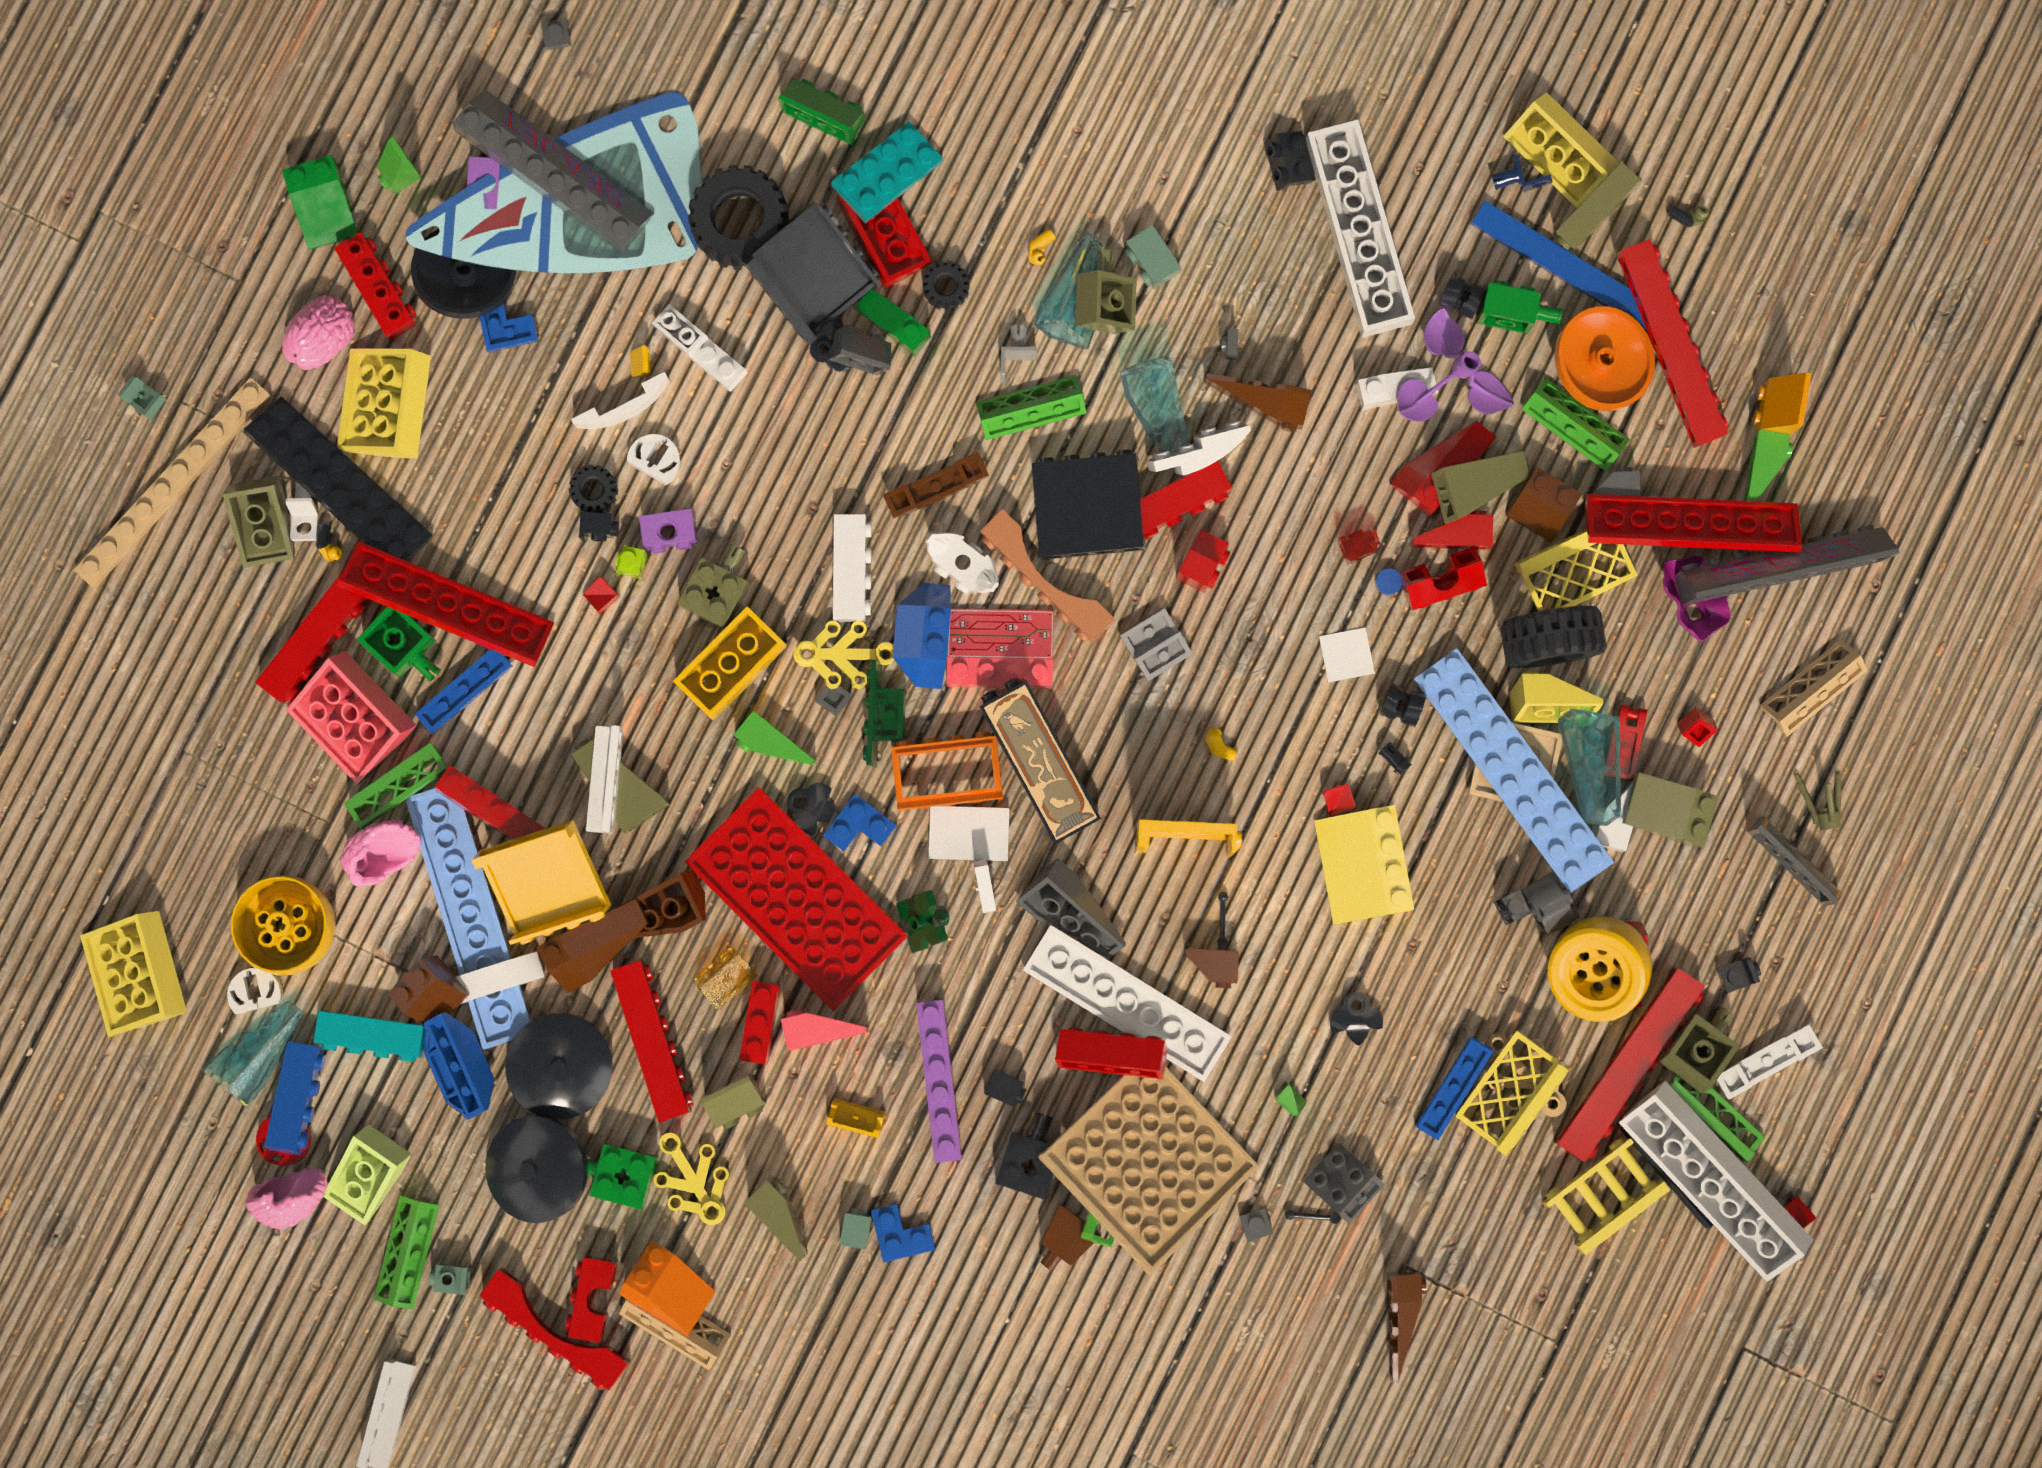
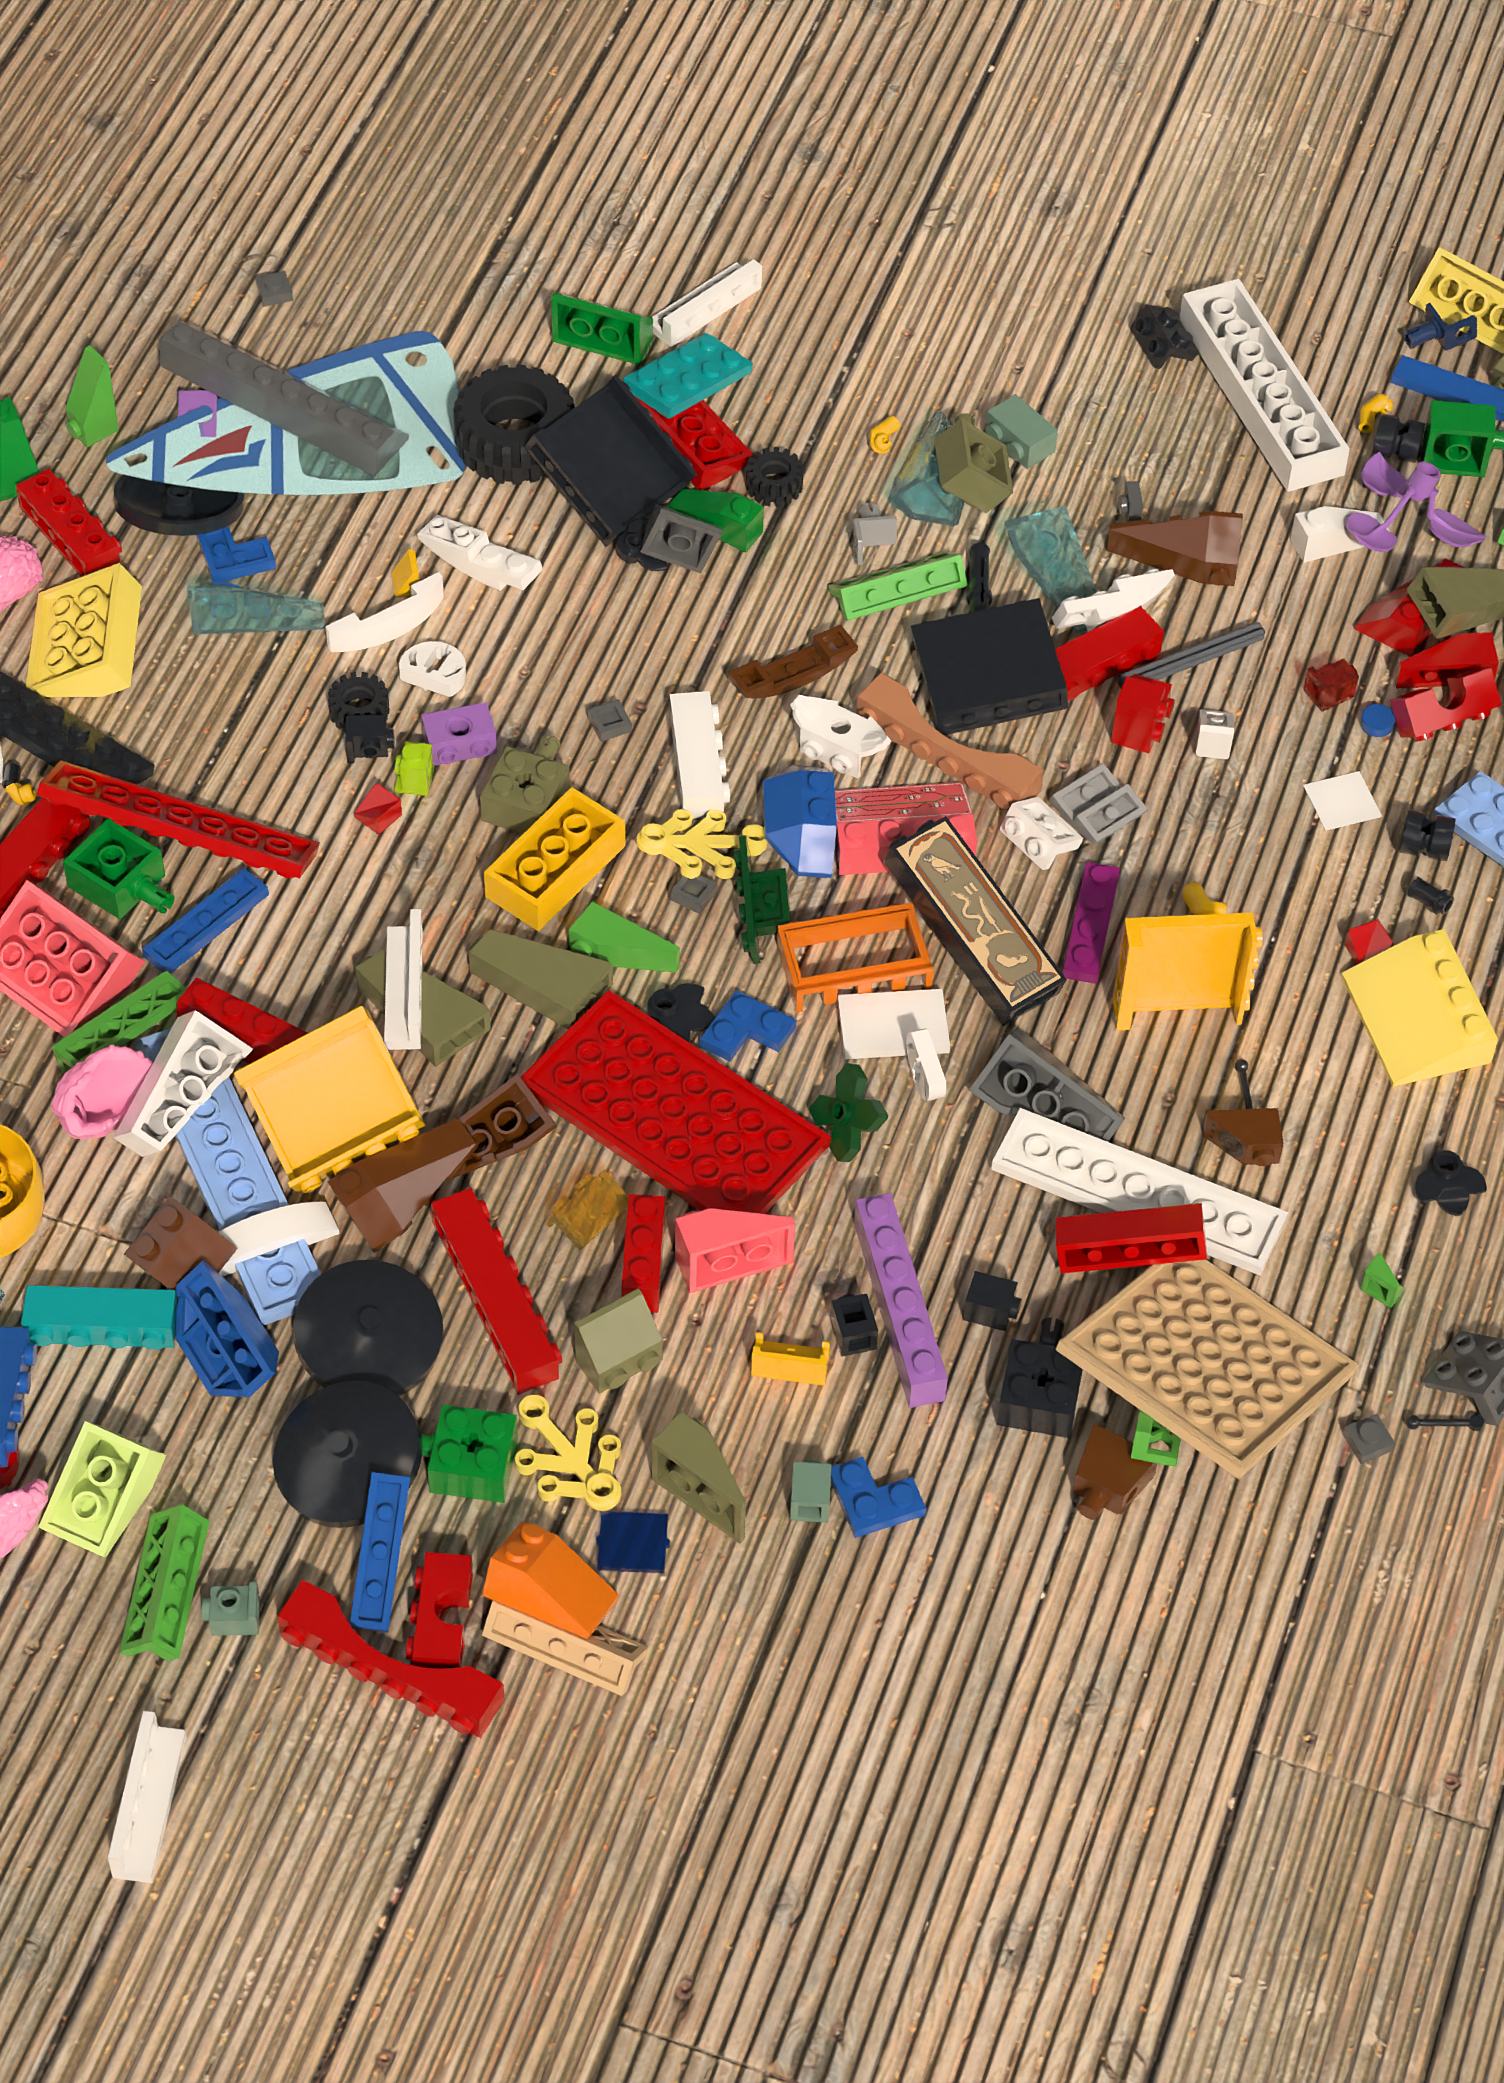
camera: 15 degrees left, 30 degrees down
(432, 855) = (179, 1081): none -> white wedge
(493, 383) = (243, 609): none -> clear light blue wedge
(552, 1253) = (379, 1552): none -> blue plate
(715, 771) = (541, 976): none -> olive slope
(729, 1250) = (632, 1542): none -> clear blue piece
(786, 525) = (609, 720): none -> dark grey plate
(901, 1106) = (854, 1324): none -> black brick
(915, 89) = (707, 302): none -> white fence
(1094, 427) = (979, 594): none -> black pin
(1106, 667) = (1039, 831): none -> white bracket
(1132, 754) = (1091, 922): none -> magenta plate
(1253, 504) = (1198, 653): none -> axle
(1258, 582) = (1215, 734): none -> white slope
(1446, 256) = (1378, 403): none -> yellow arm

